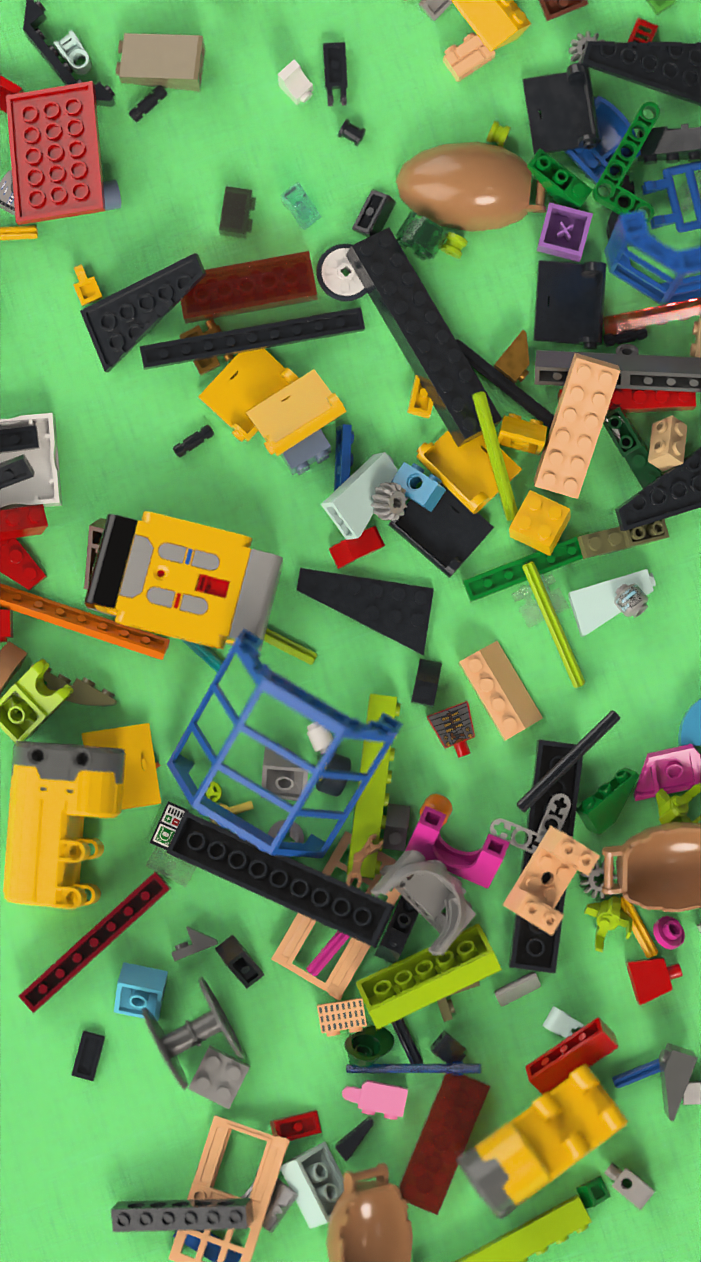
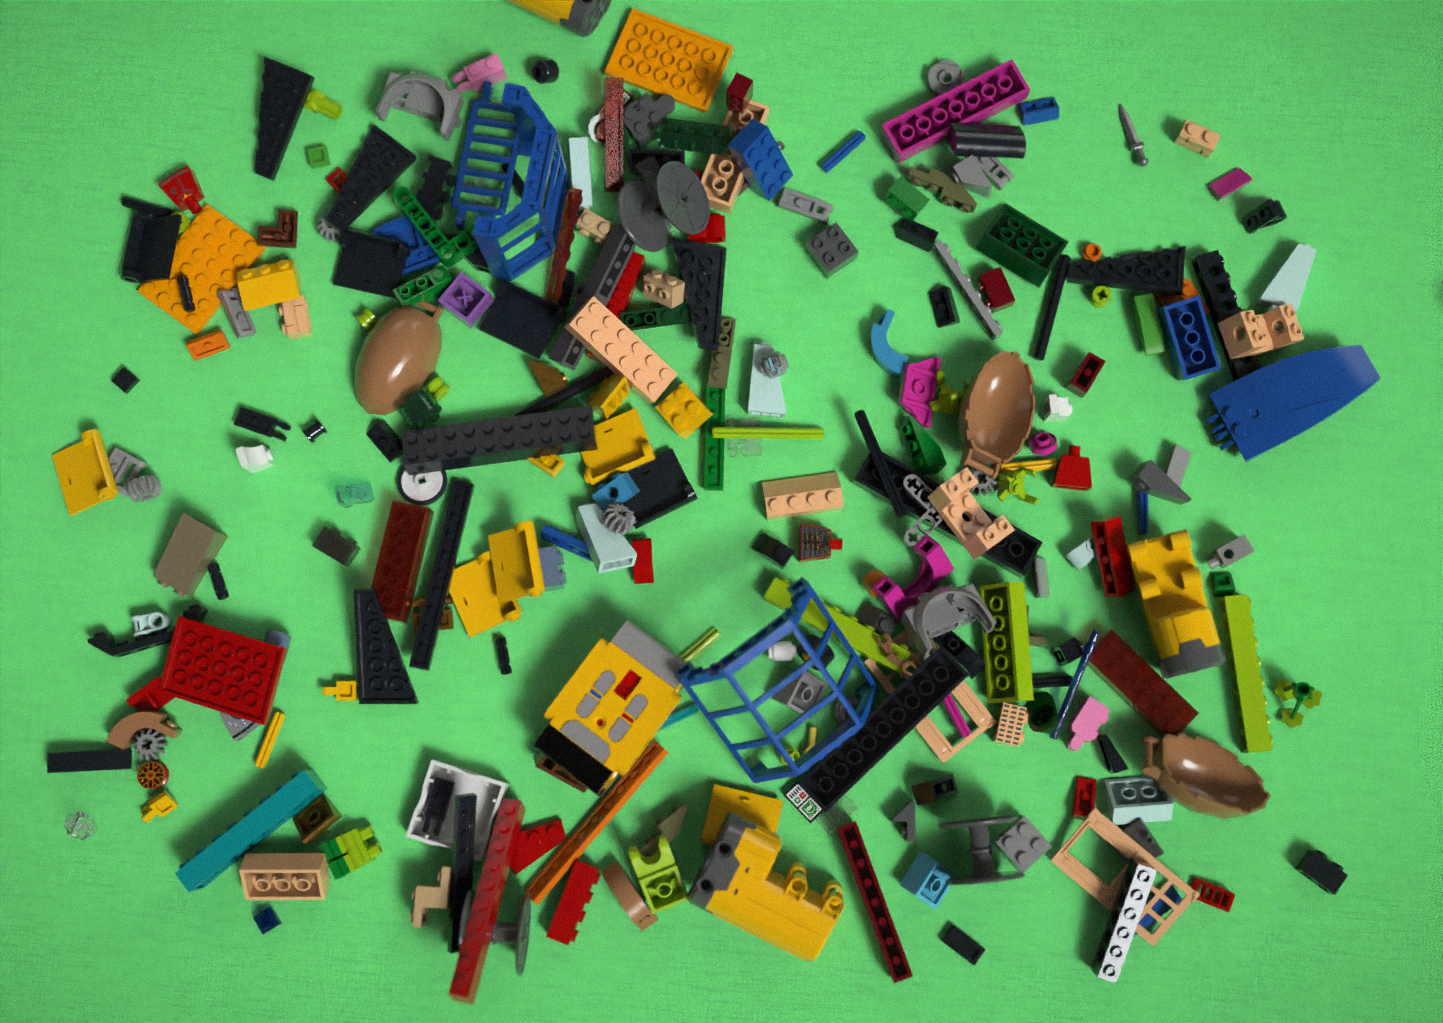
camera: 65 degrees left, 5 degrees down
(383, 606) = (698, 559): black wing -> none
(495, 455) = (617, 421): lime axle -> none

